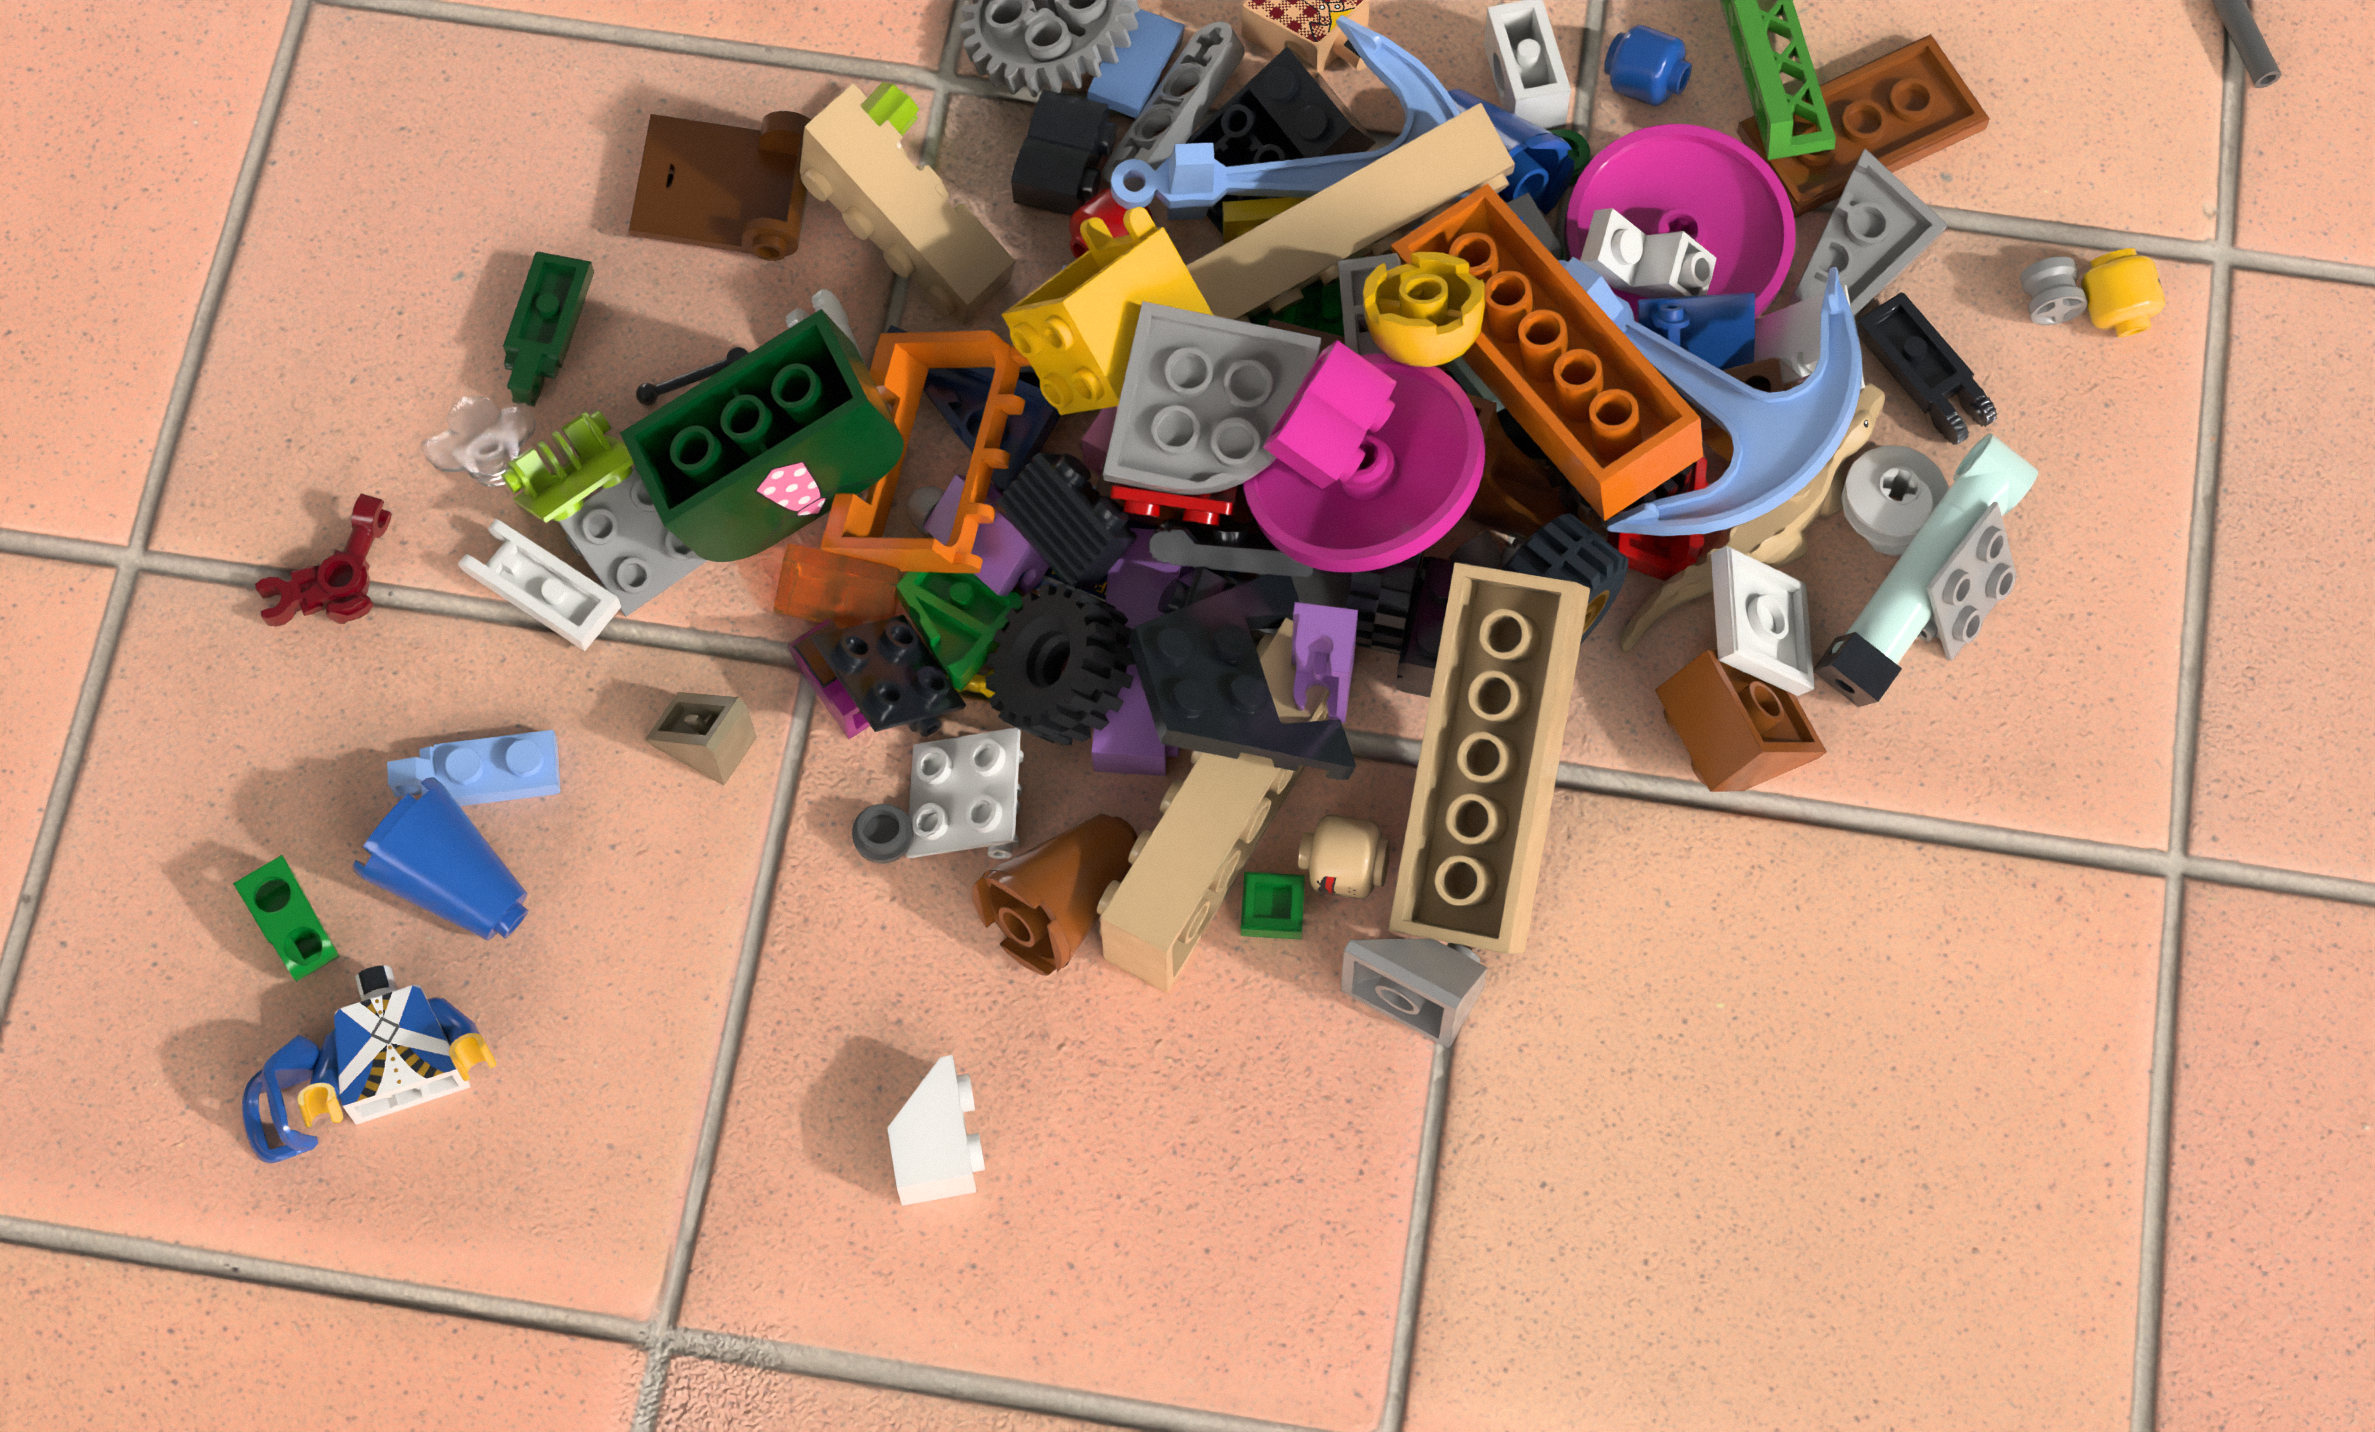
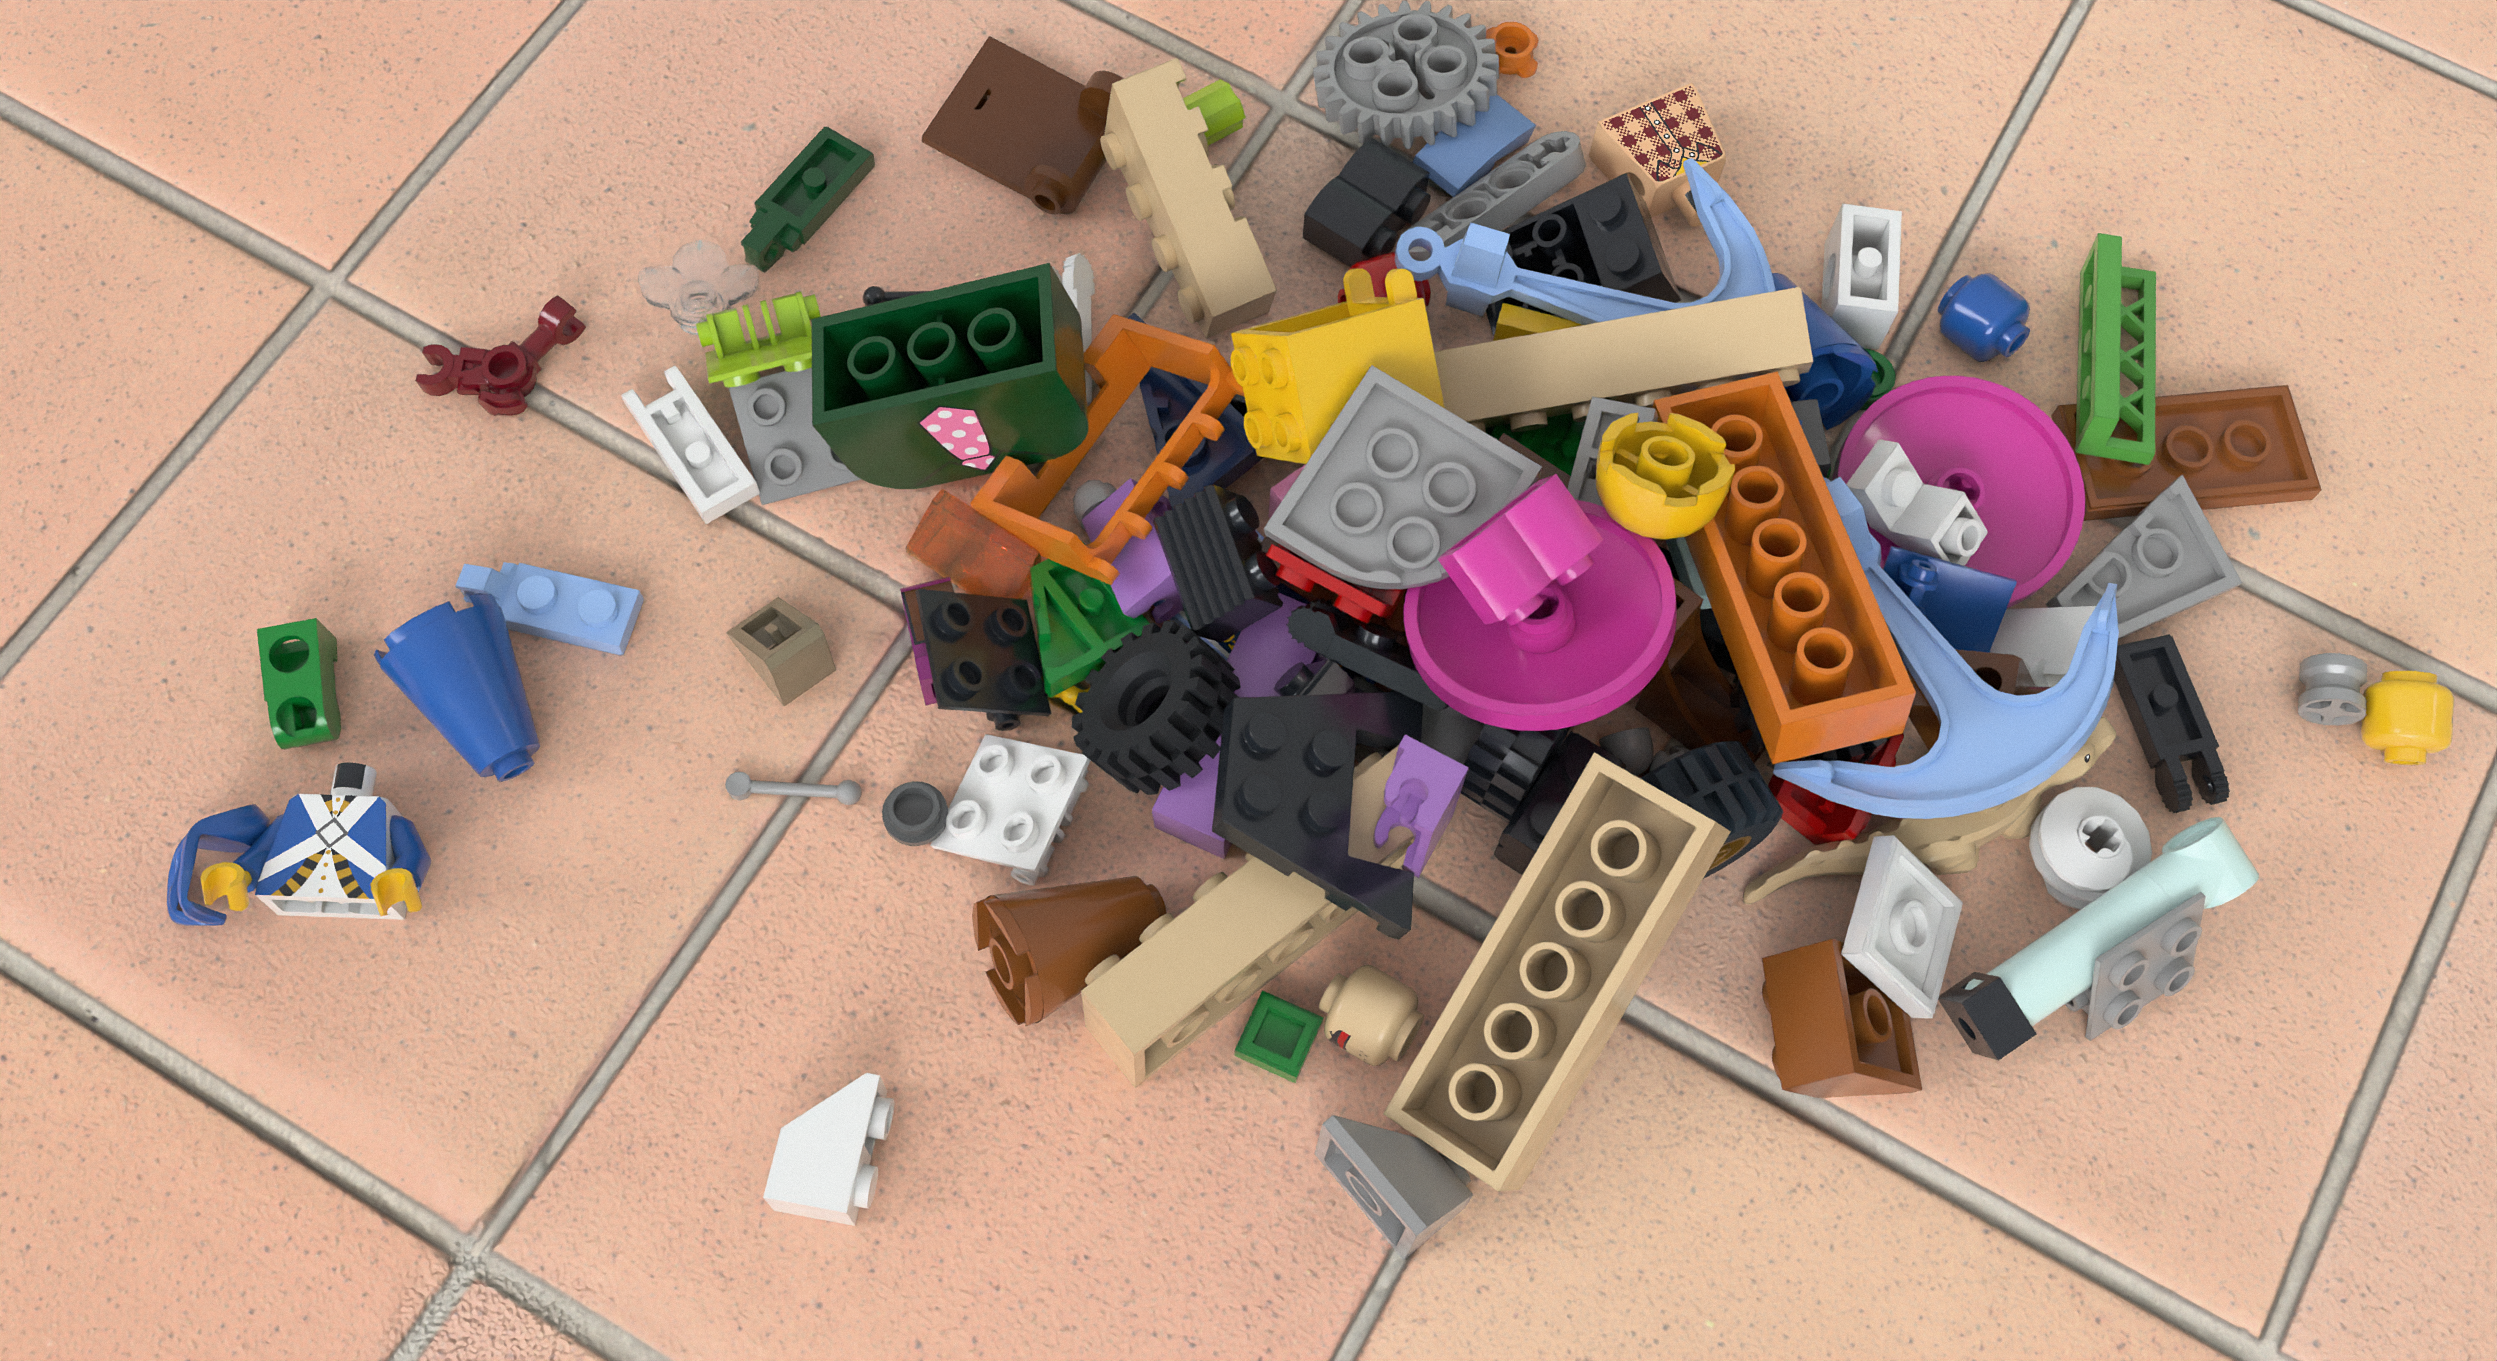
camera: 15 degrees right, 0 degrees up
(717, 866) = (741, 787): none -> light grey hinge

